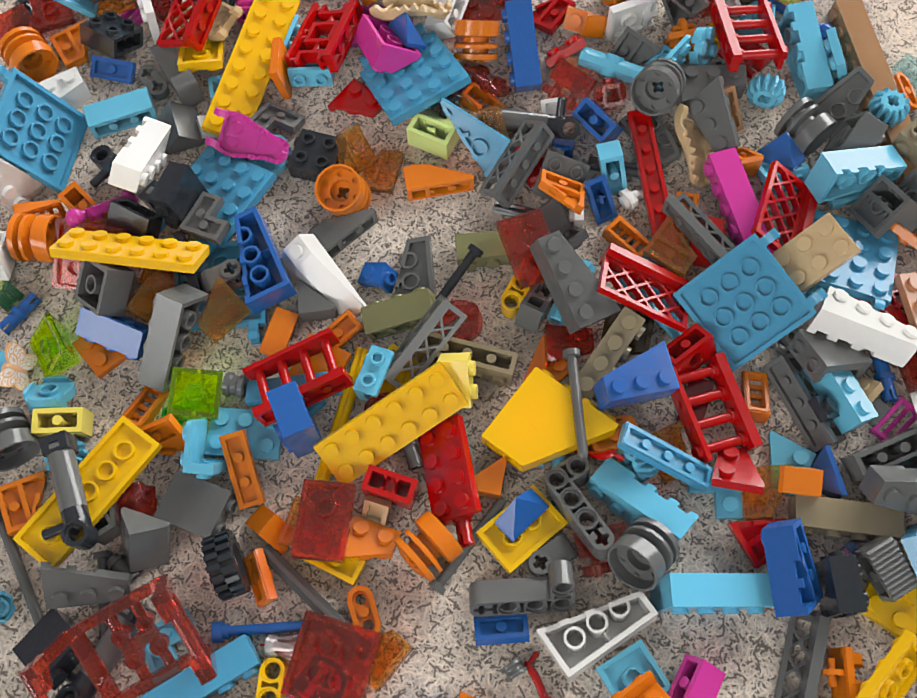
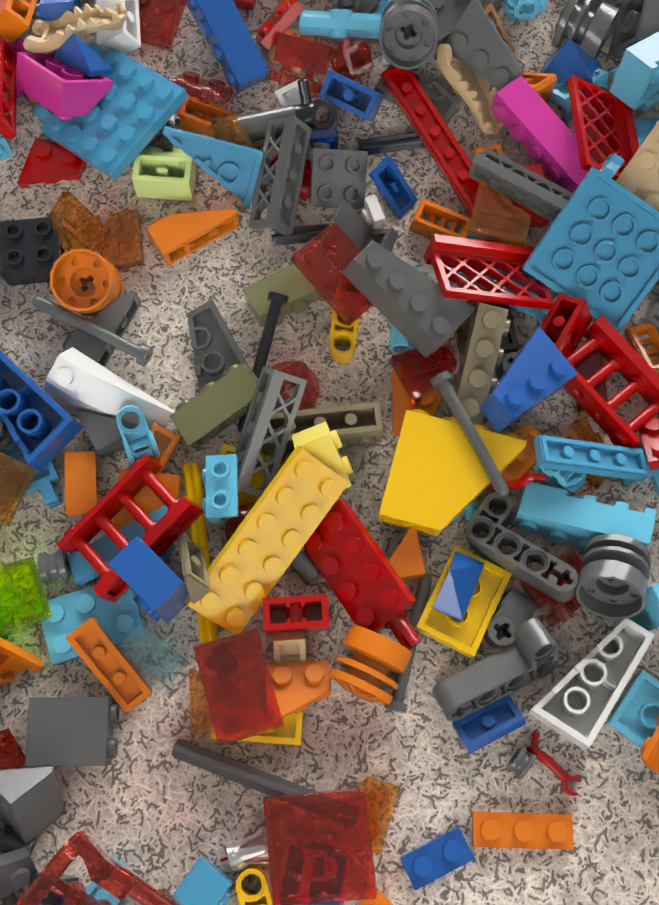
camera: 30 degrees left, 5 degrees up
(193, 455) = (46, 679): medium azure bracket -> none
(223, 631) = (169, 864): blue piece -> none
(225, 565) = (142, 787): black wheel -> none
(260, 578) = (187, 782): orange plate -> none
(267, 526) = (168, 719): orange slope -> none
(277, 475) = (154, 653): none -> clear light blue tile
(328, 421) = (193, 568): none -> dark tan slope
(330, 313) = (136, 436): none -> medium azure piece
(360, 256) = (142, 354): none -> dark grey bar
(366, 611) = (325, 770): orange plate -> none
(378, 275) = (170, 370): blue bracket -> none
(476, 40) = (169, 42): orange wheel -> none
(534, 308) = (372, 341): dark grey slope -> none
(563, 190) = (350, 190): orange wing -> none
(612, 165) = (390, 139): medium azure slope -> none
(629, 199) = (424, 175): white plate -> none

